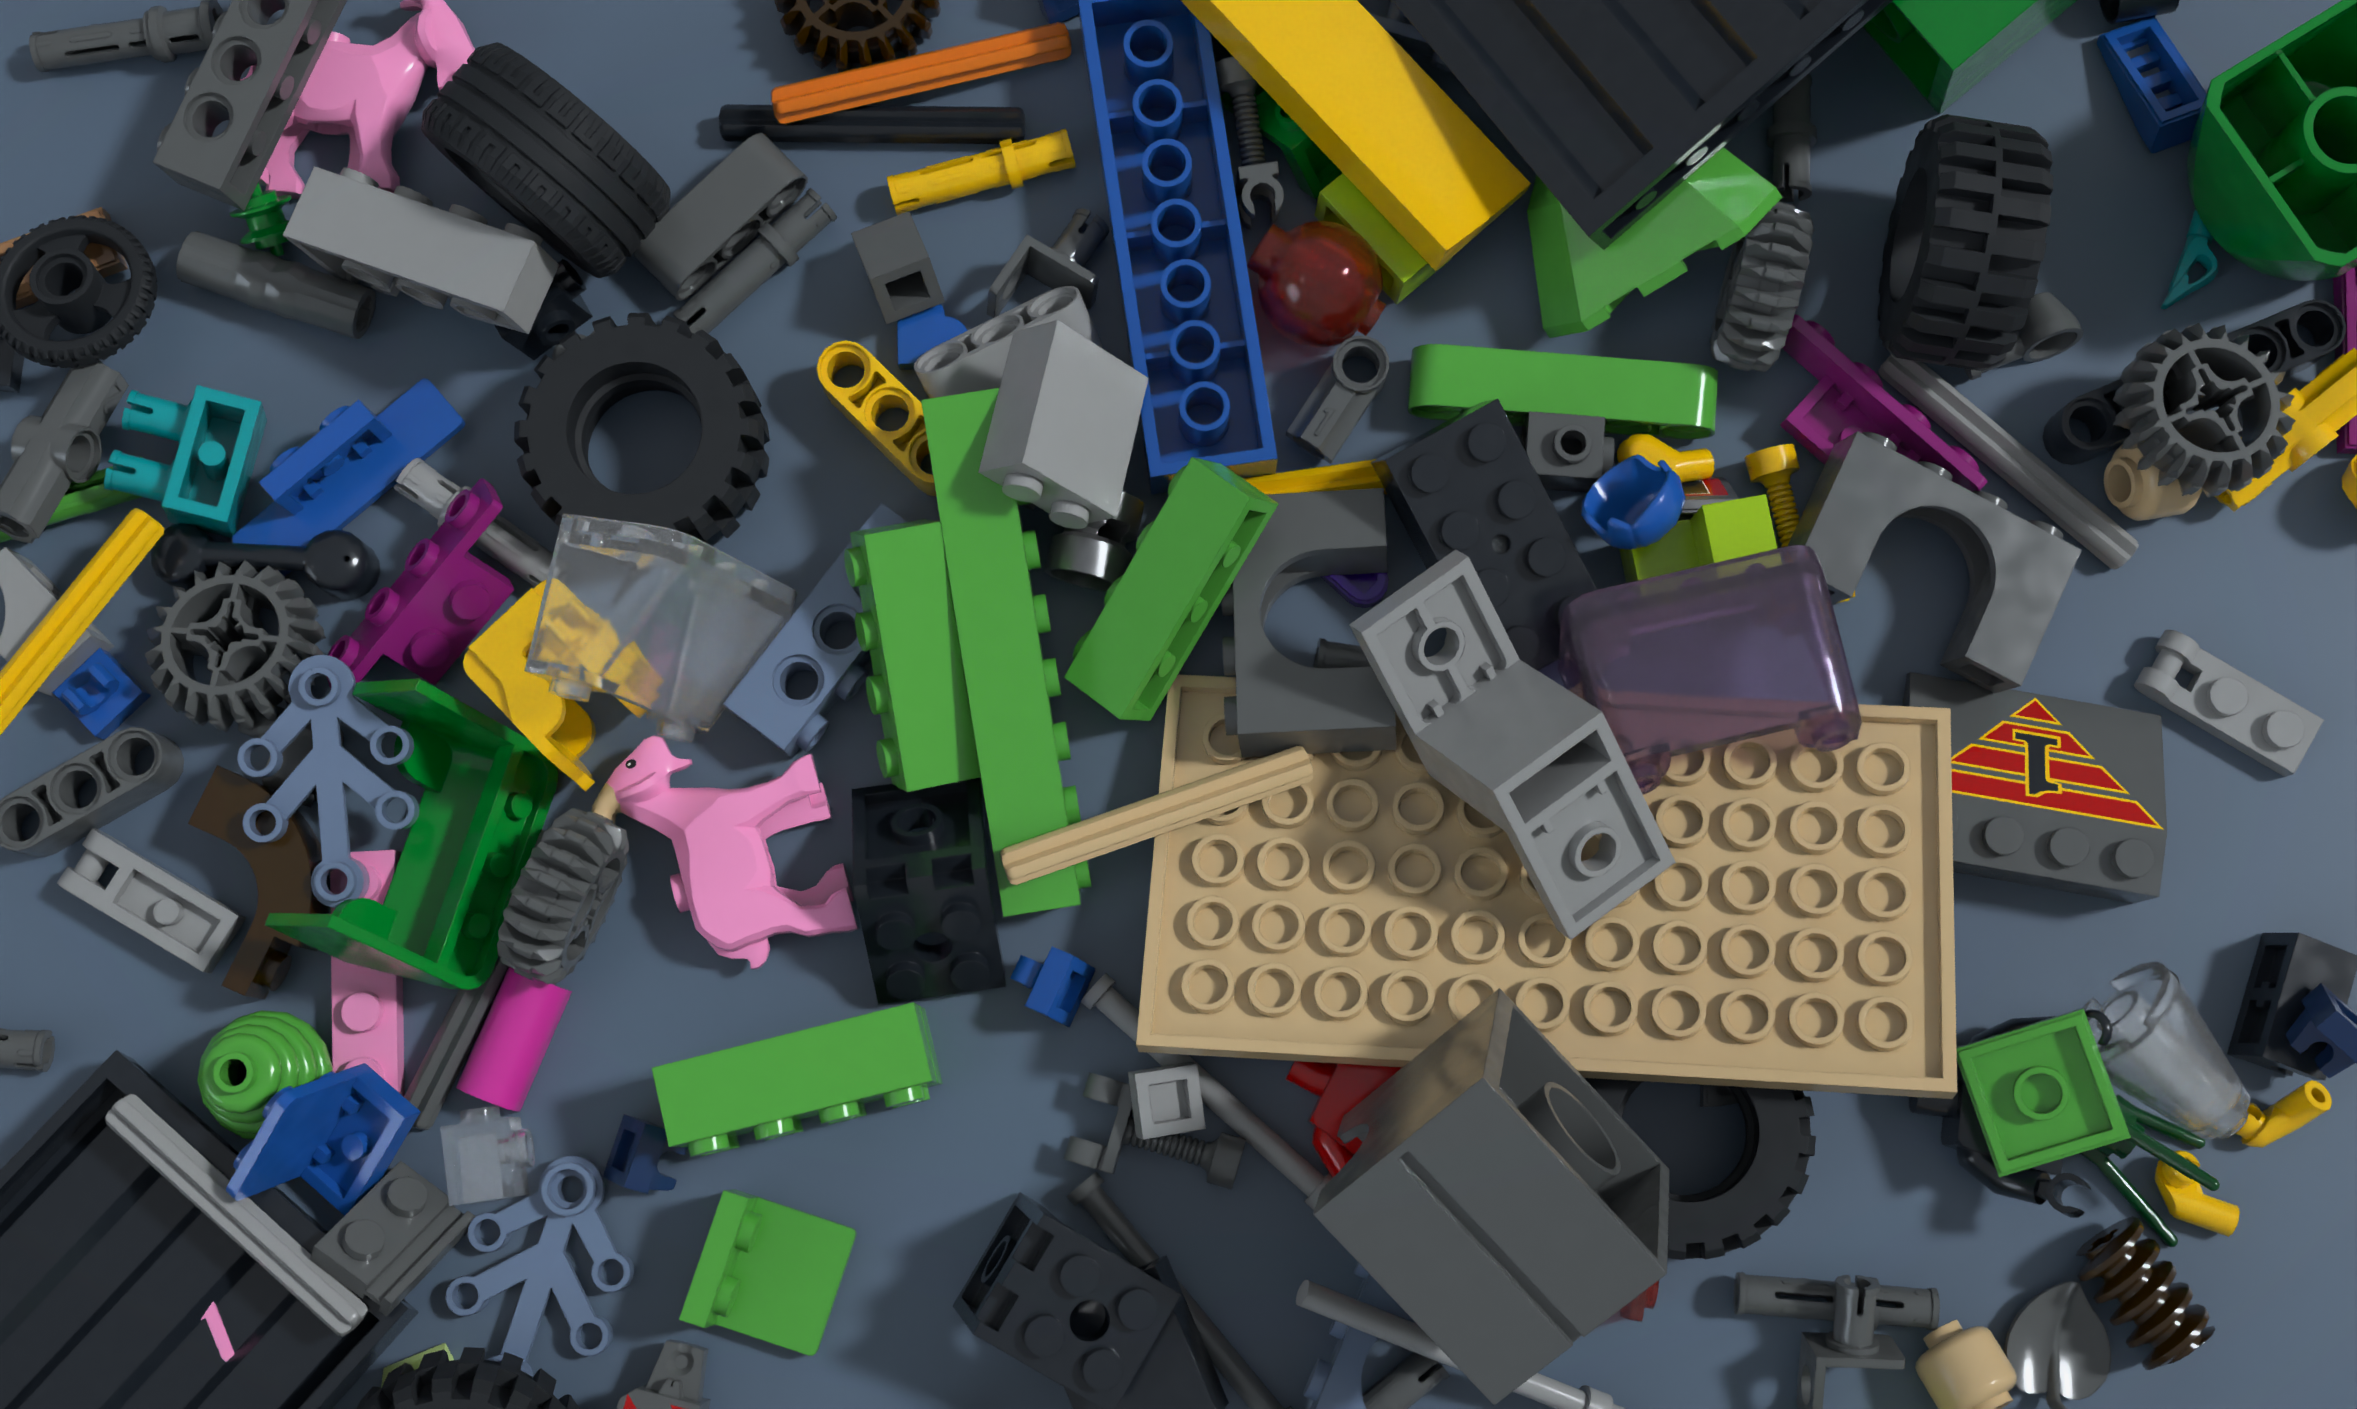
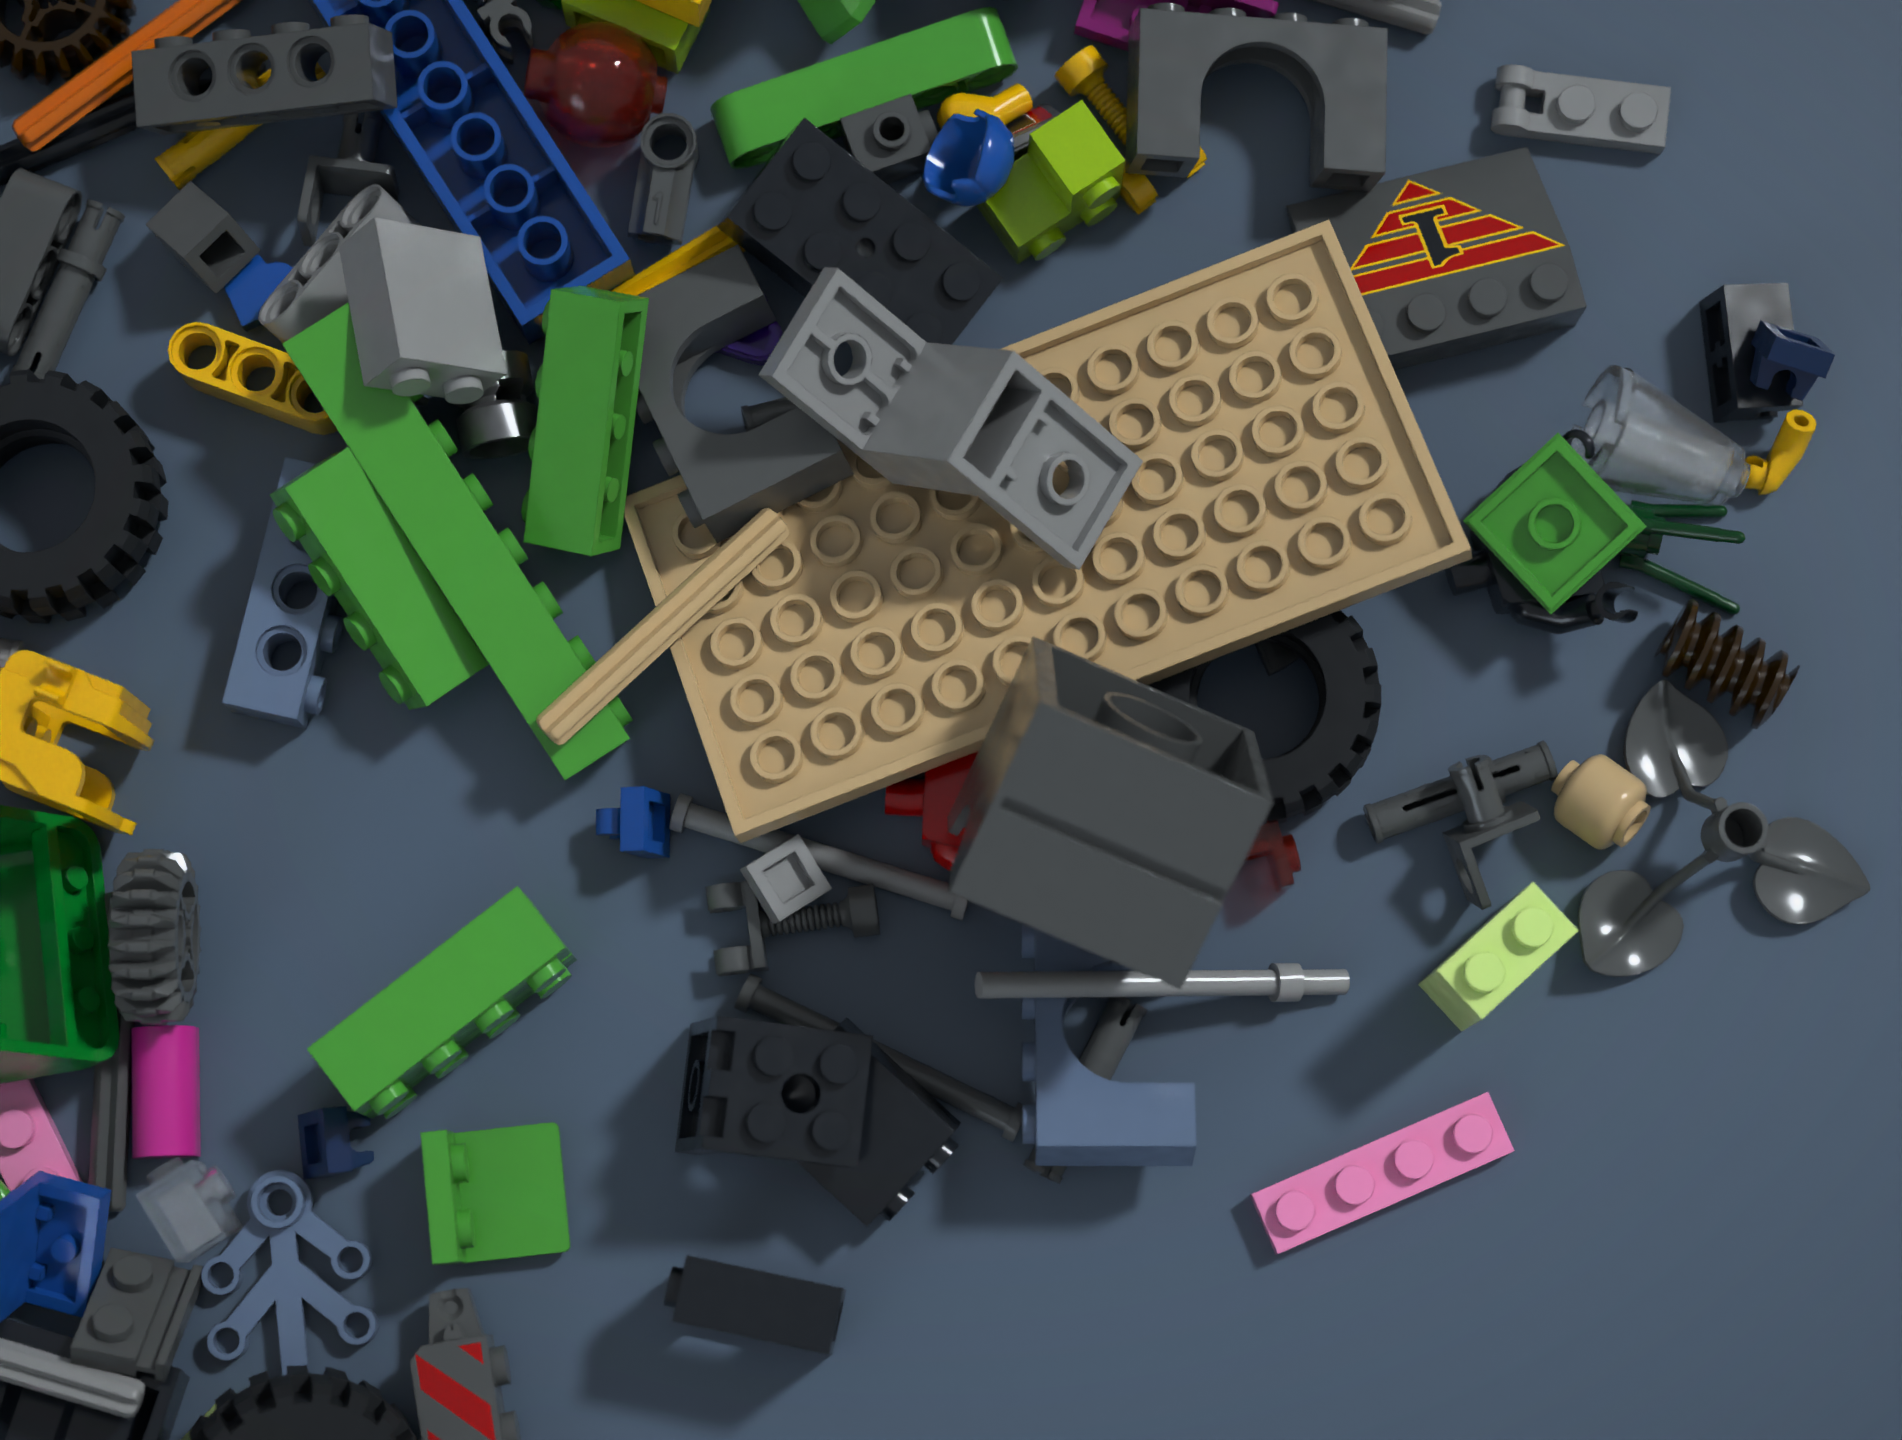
camera: 25 degrees left, 0 degrees up
(652, 621) = (128, 647): clear windscreen -> none
(724, 850) = (282, 835): bright pink animal -> none
(922, 886) = (478, 783): black bracket -> none
(1099, 186) = (357, 81): none -> dark grey brick
(1712, 659) = (1096, 265): clear purple windscreen -> none
(2189, 1203) = (1733, 567): yellow arm -> none

